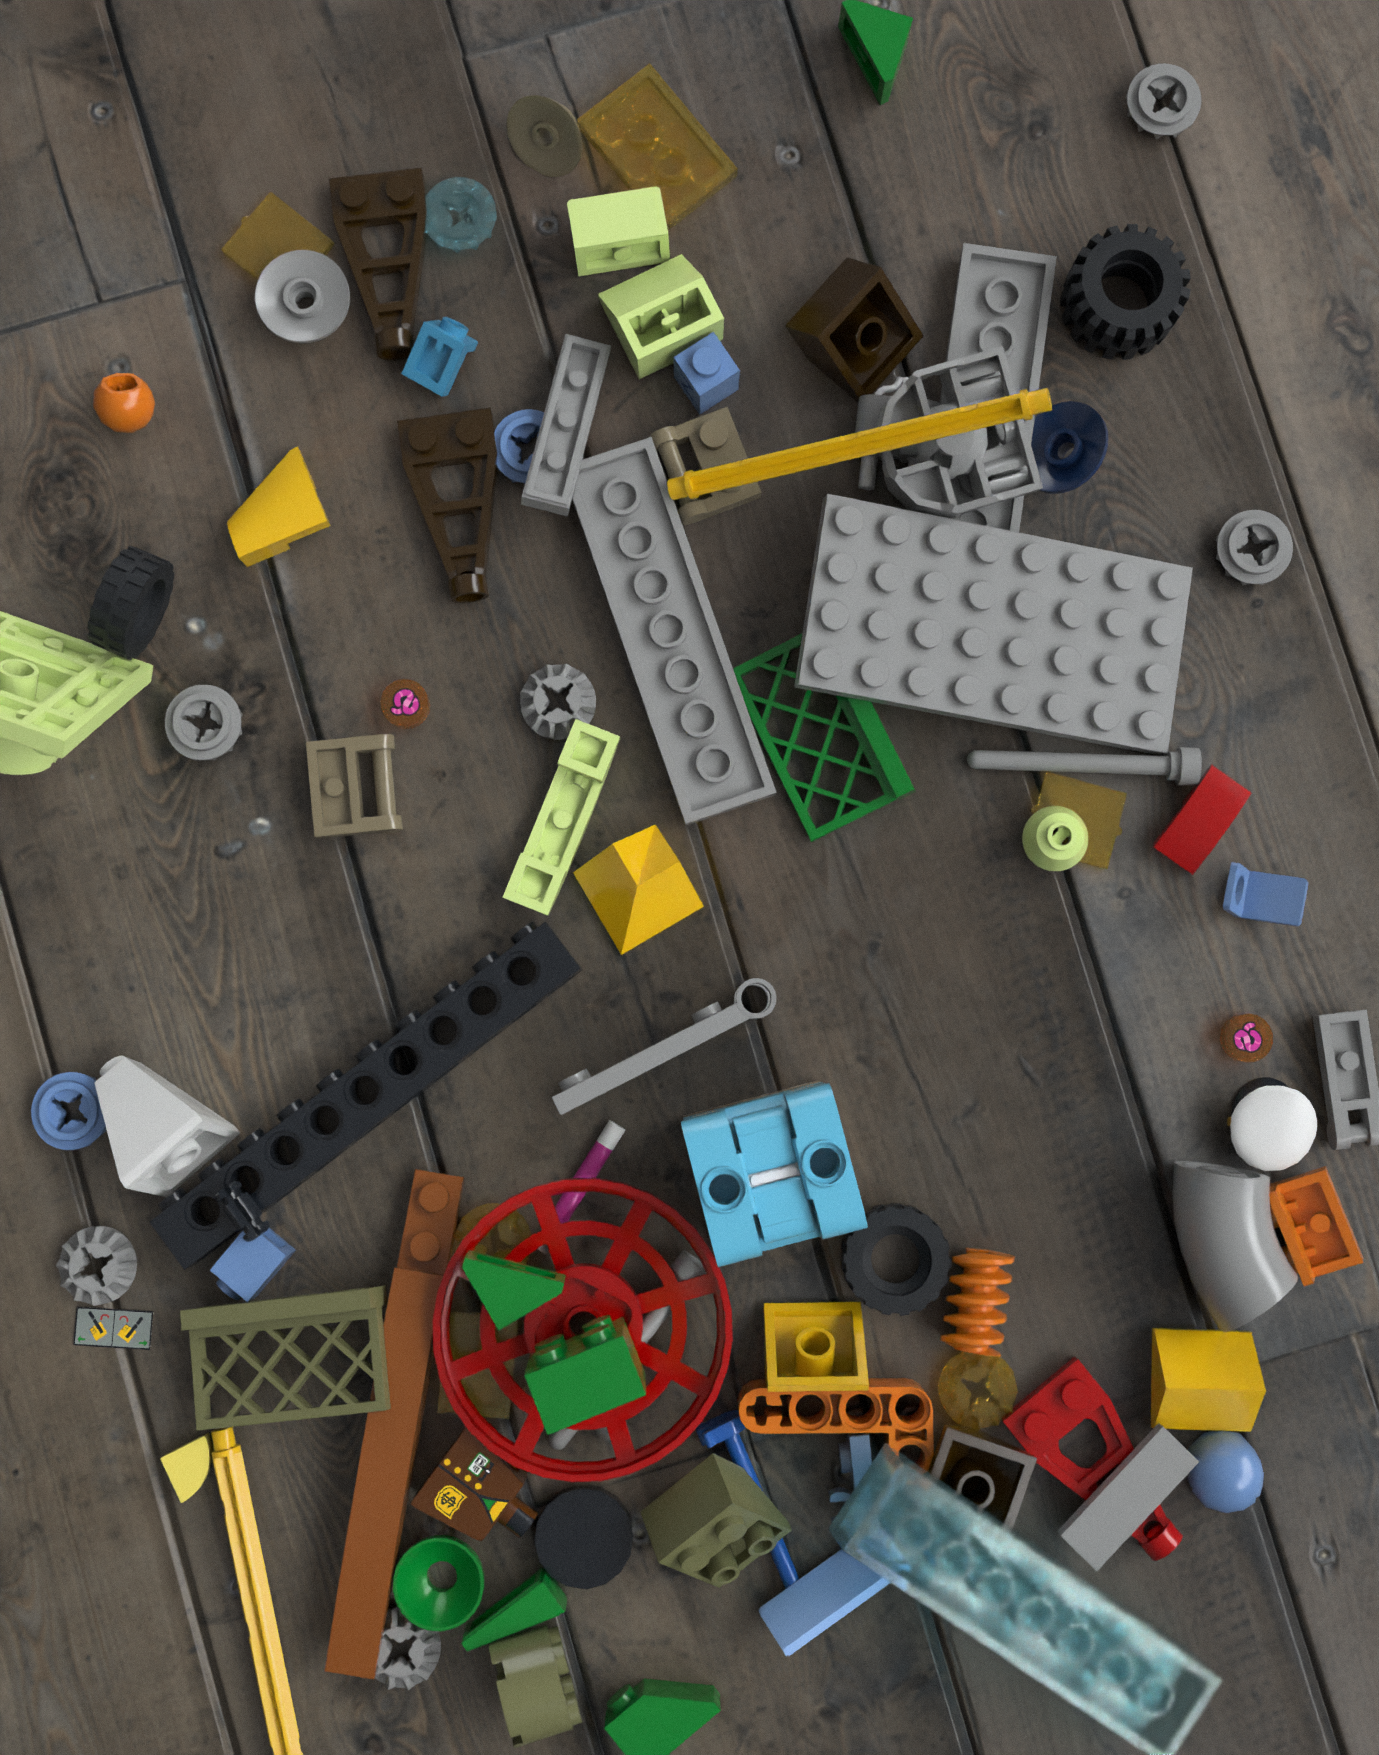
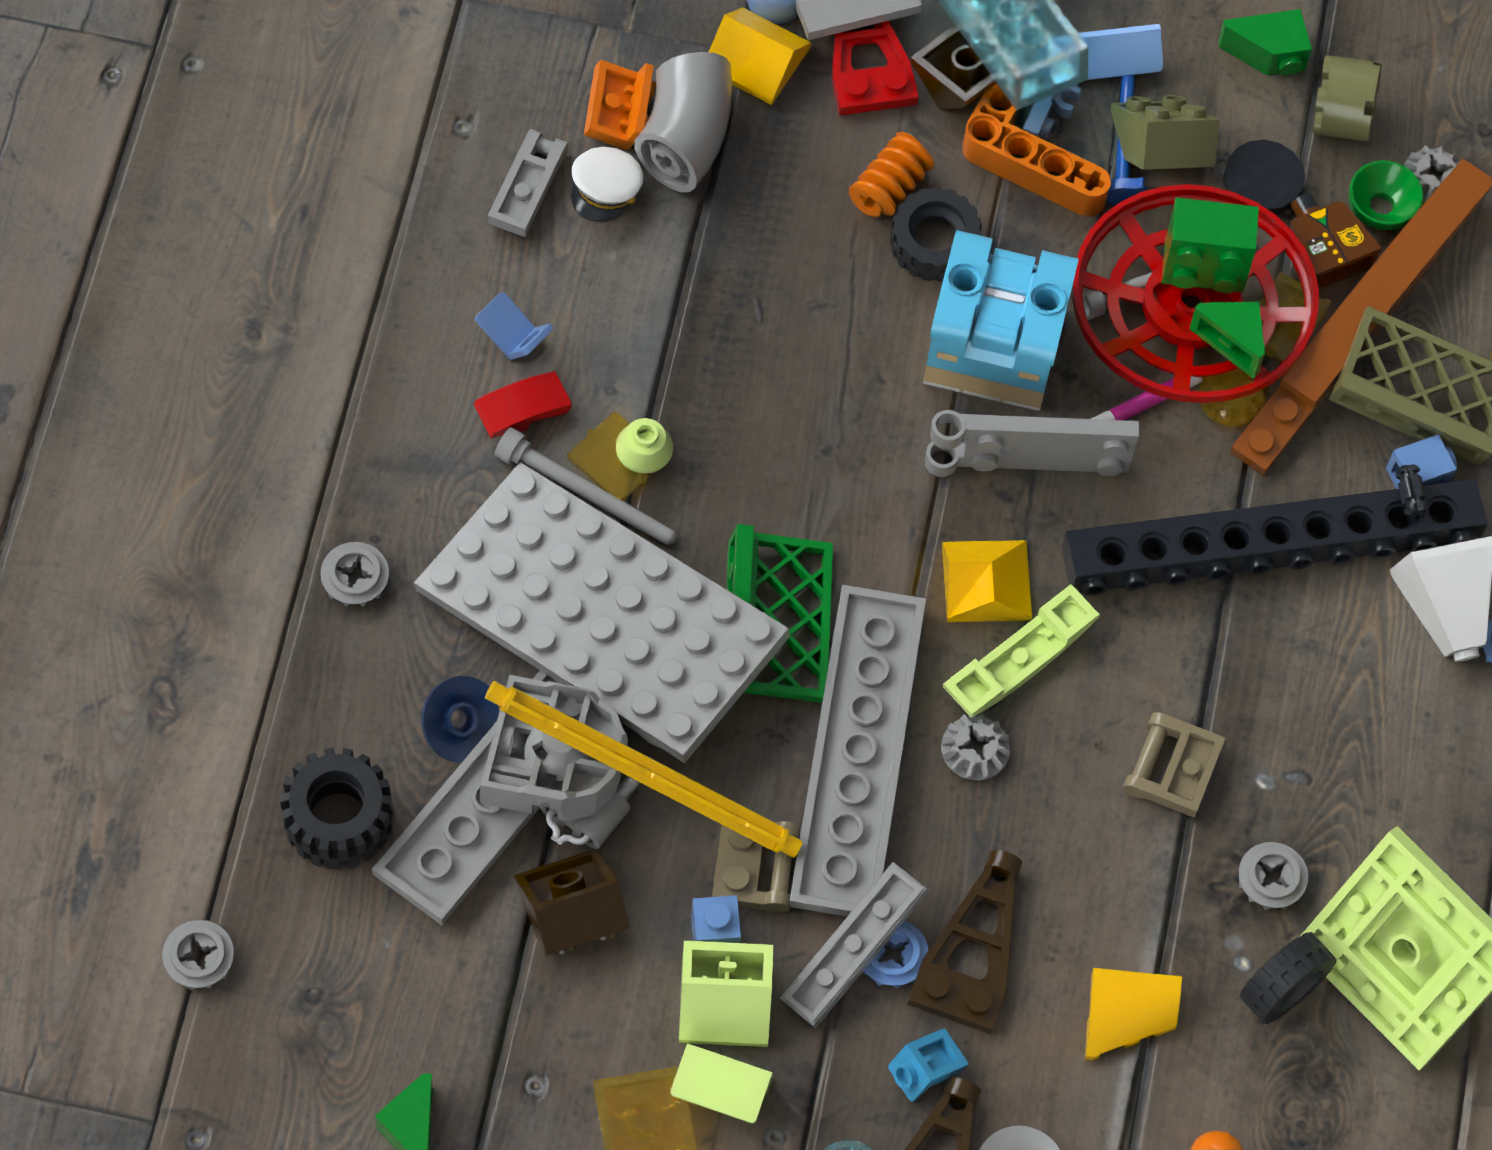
camera: 155 degrees left, 20 degrees down
(405, 703) = (1100, 808): clear orange tile -> none
(525, 1606) = (1337, 153): green slope -> none
(814, 1347) = (1030, 203): yellow slope -> none
(956, 1396) = (941, 129): clear yellow gear -> none
(1246, 1038) = (584, 247): clear orange tile -> none

